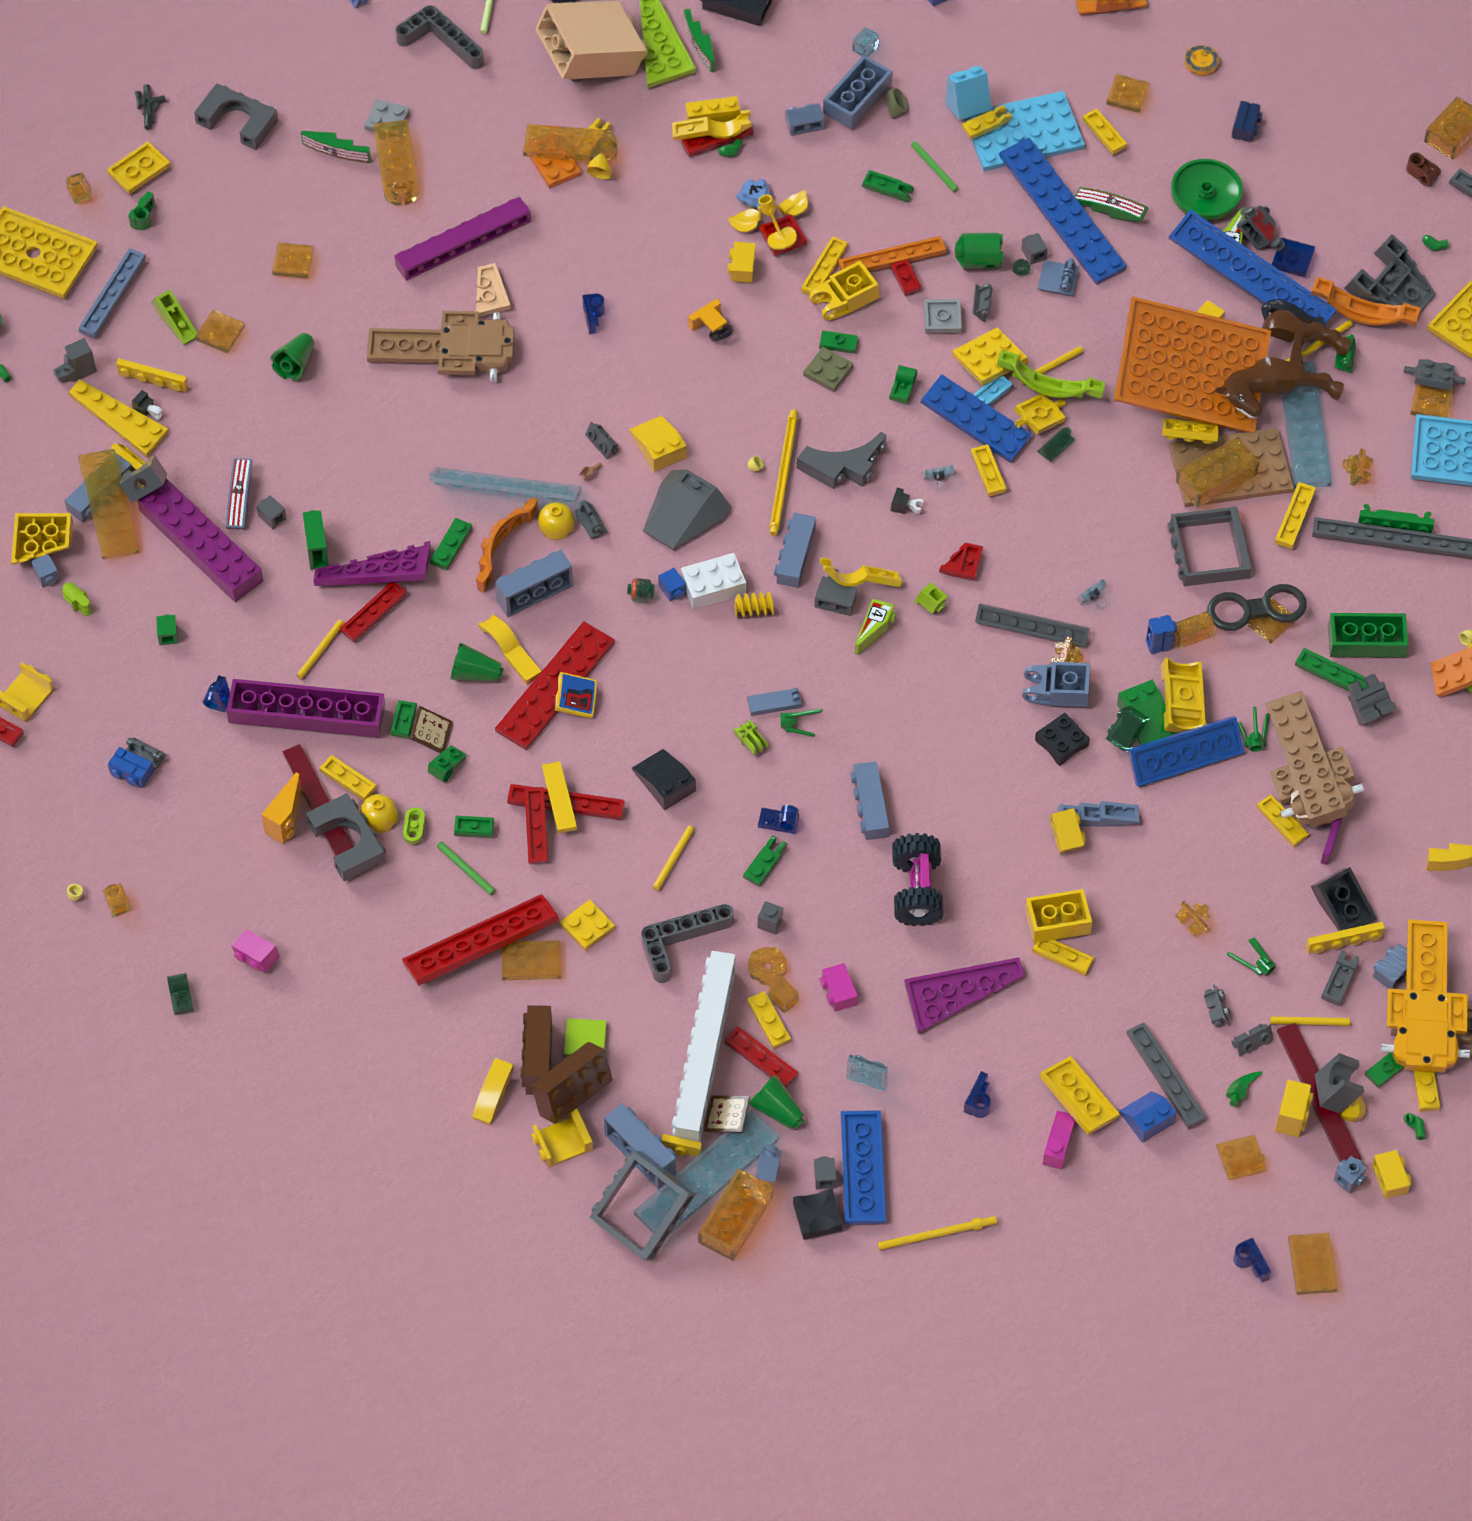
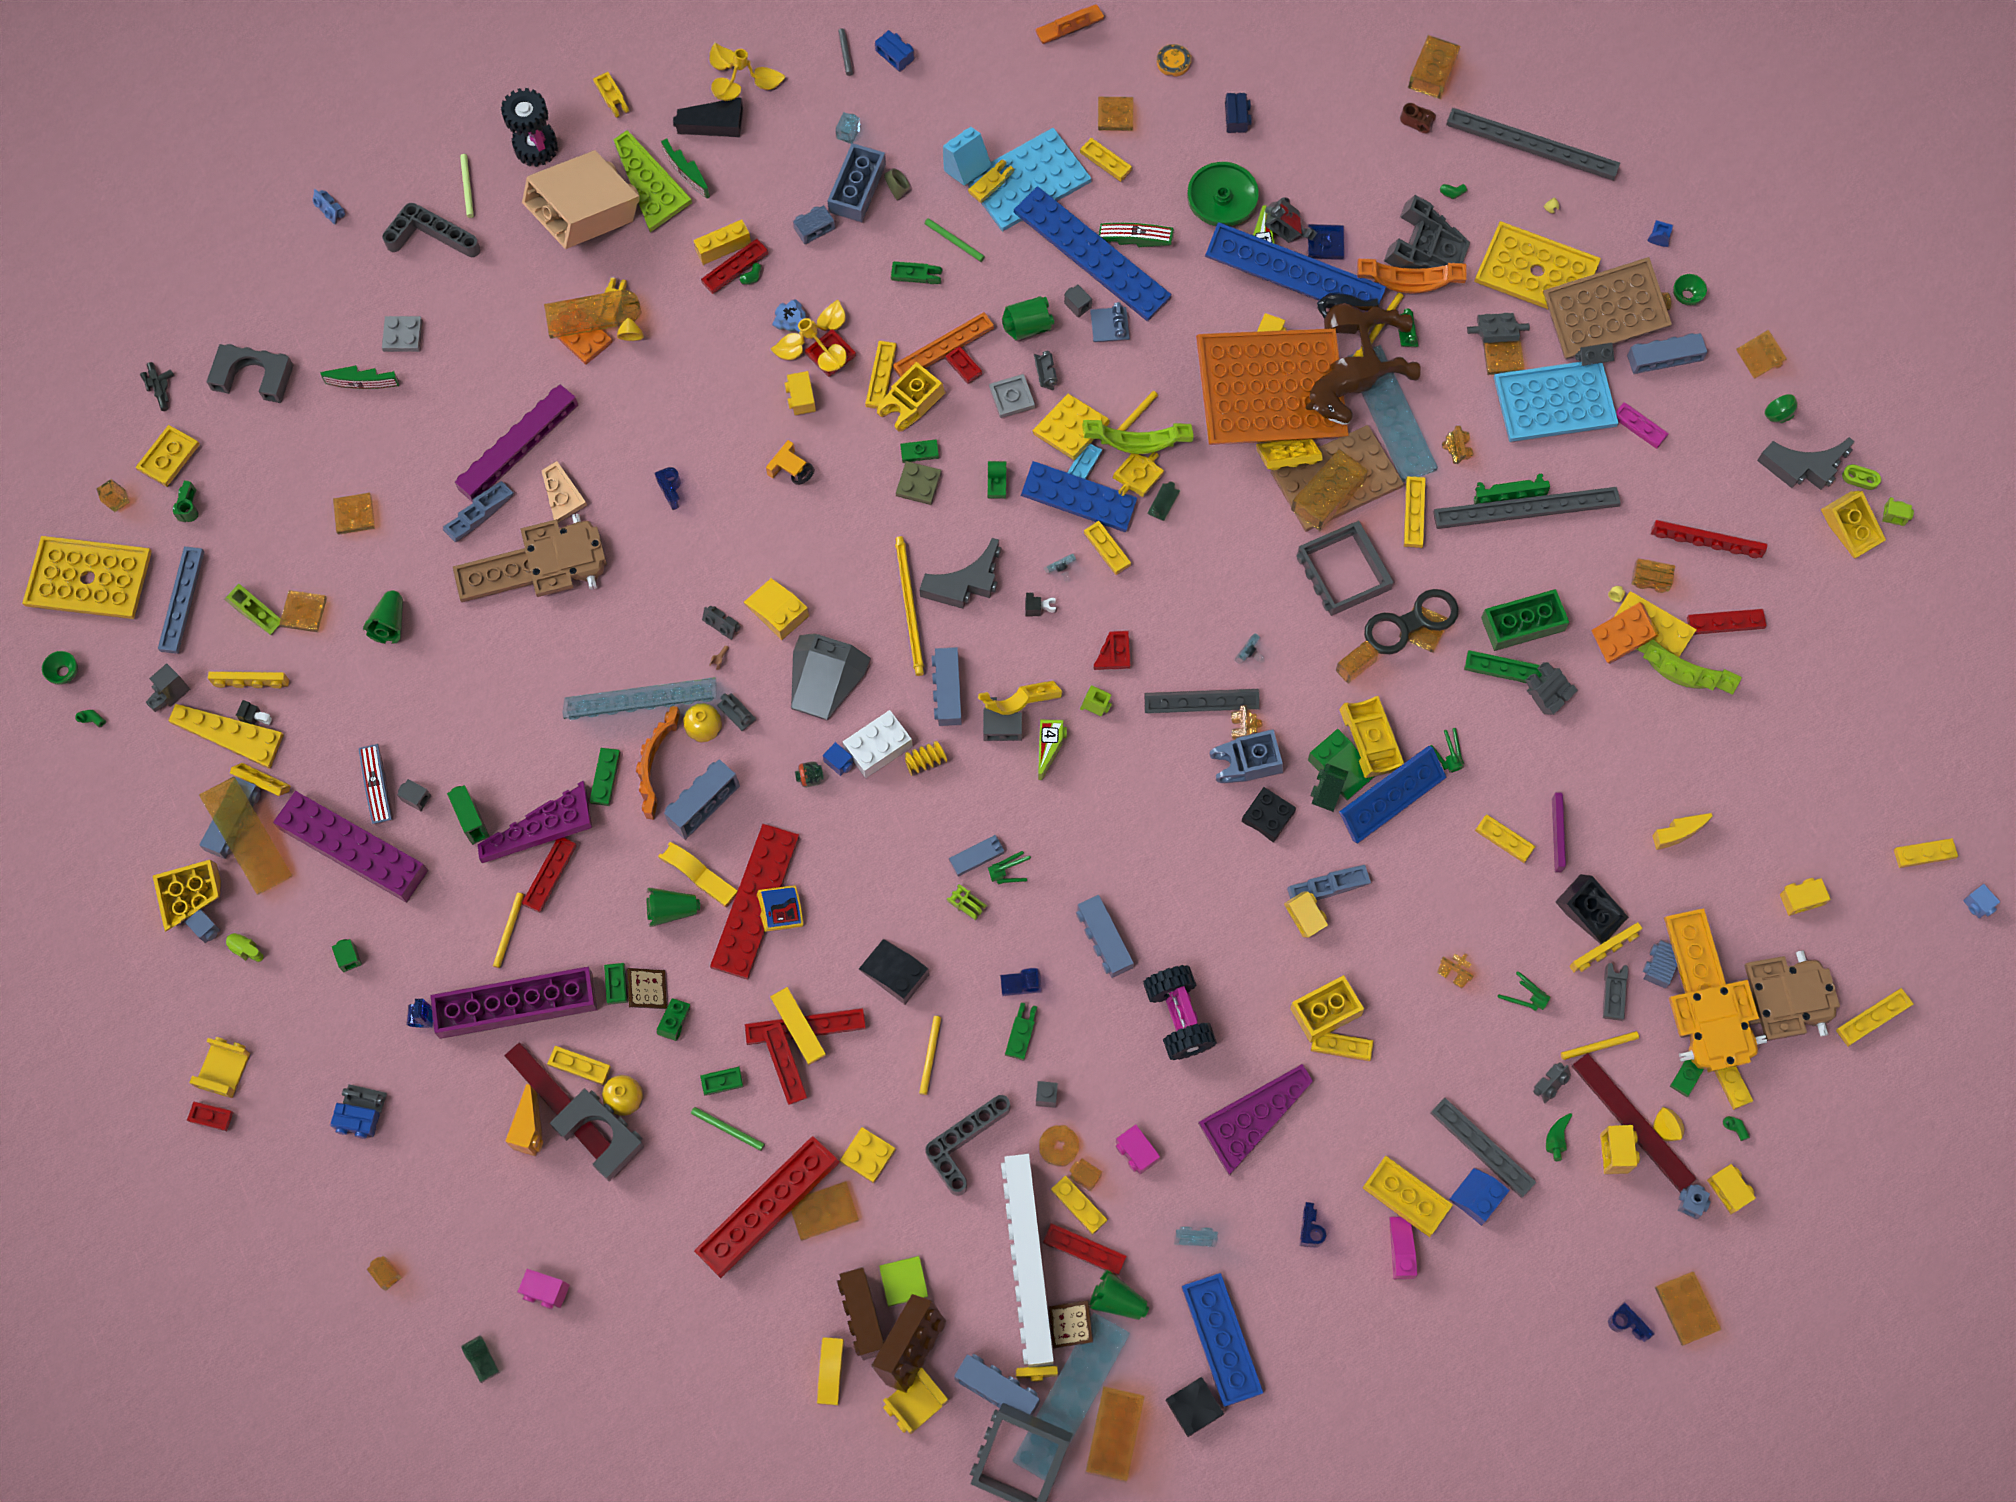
camera: 15 degrees left, 10 degrees up
(77, 890) = (341, 1273): light yellow hinge -> none
(151, 472) = (281, 793): dark grey piece -> none
(396, 161) = (425, 378): clear yellow plate -> none
(409, 288) = (478, 512): none -> sand blue slope
(414, 827) = (661, 1099): lime plate -> none
(706, 126) = (726, 259): yellow piece -> none
(755, 464) = (879, 604): light yellow hinge -> none
(769, 1163) = (1131, 1371): sand blue brick -> none
(824, 1173) = (1186, 1358): dark grey brick -> none
(975, 1224) = (1350, 1367): yellow bar -> none
(1021, 263) = (1071, 319): clear green plate -> none
(1160, 634) = (1329, 677): blue brick -> none
(1216, 999) = (1513, 1064): dark grey hinge -> none
(1241, 1157) = (1582, 1213): clear yellow hinge -> none
(1313, 778) = (1520, 784): medium nougat piece -> none
(1333, 1083) = (1649, 1113): dark grey piece -> none

